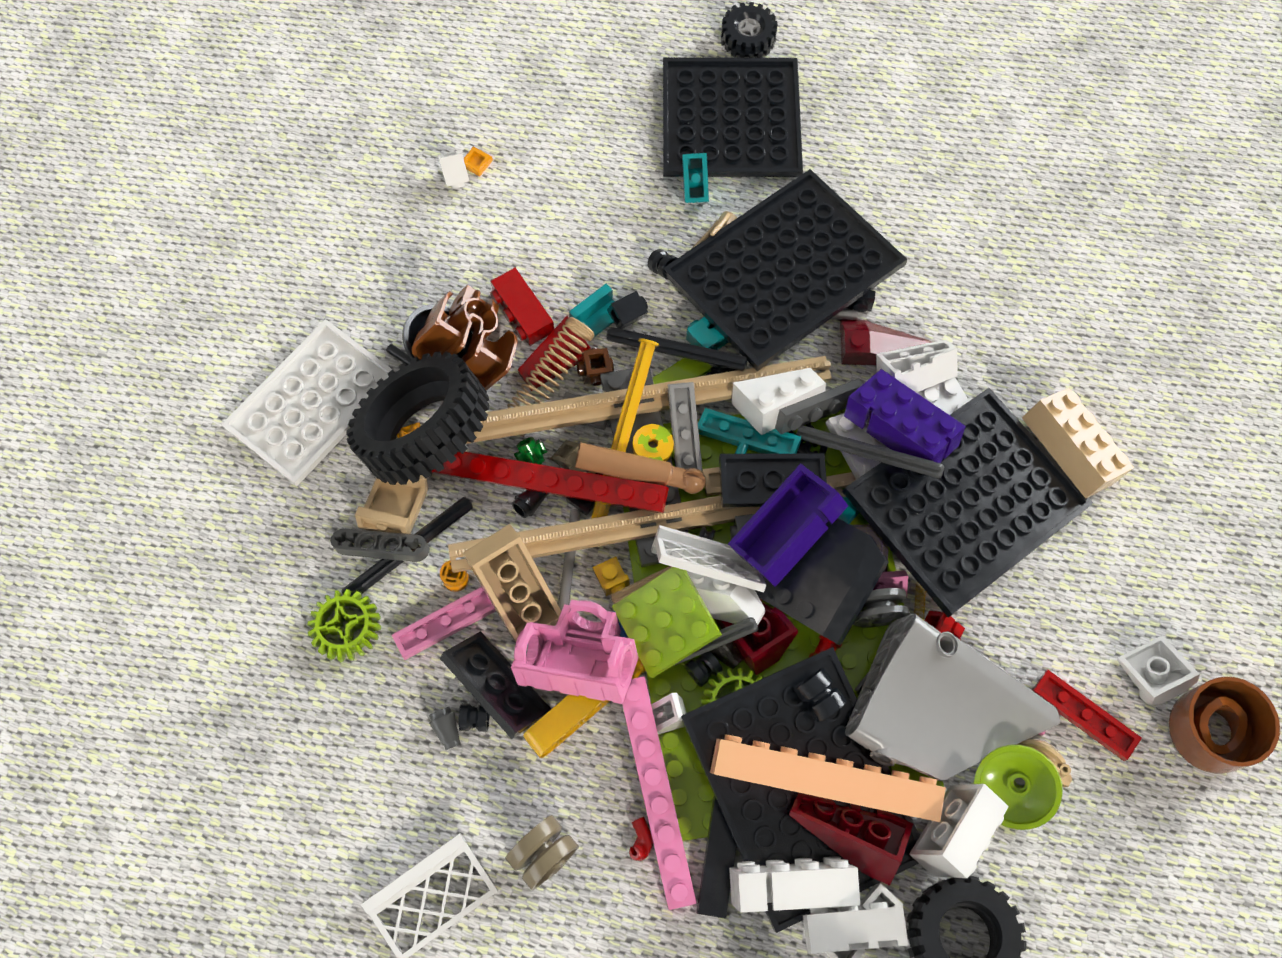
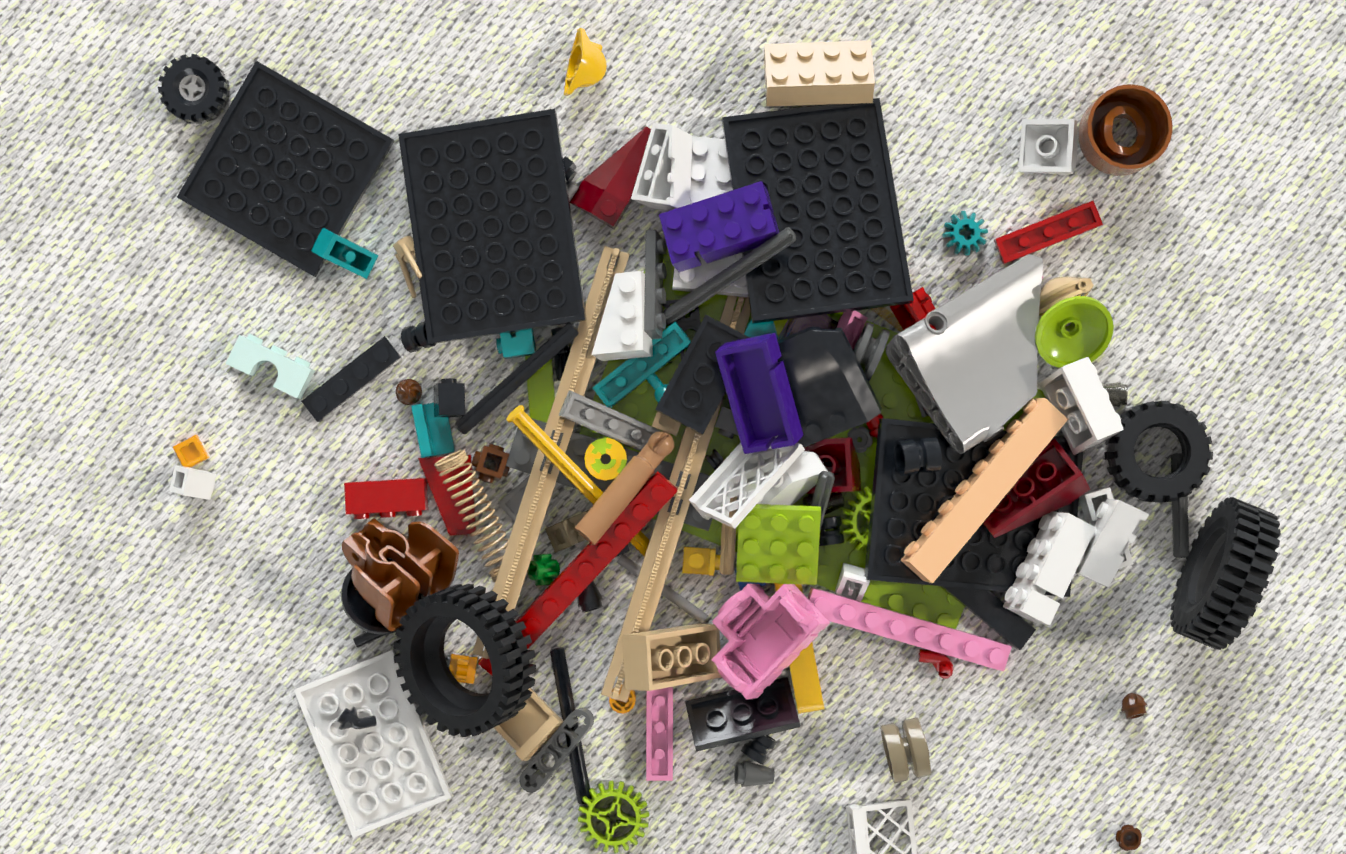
camera: 55 degrees left, 20 degrees up
(321, 366) = (350, 720): none -> black plate
(577, 194) = (292, 374): none -> light aqua arch
(600, 238) = (351, 379): none -> black plate
(617, 281) = (408, 391): none -> reddish brown plate
(804, 645) = (866, 441): none -> dark grey plate
(955, 273) = (585, 63): none -> yellow hat
(989, 865) = (1117, 393): none -> clear smoke cone
(1041, 649) = (959, 240): none -> teal gear

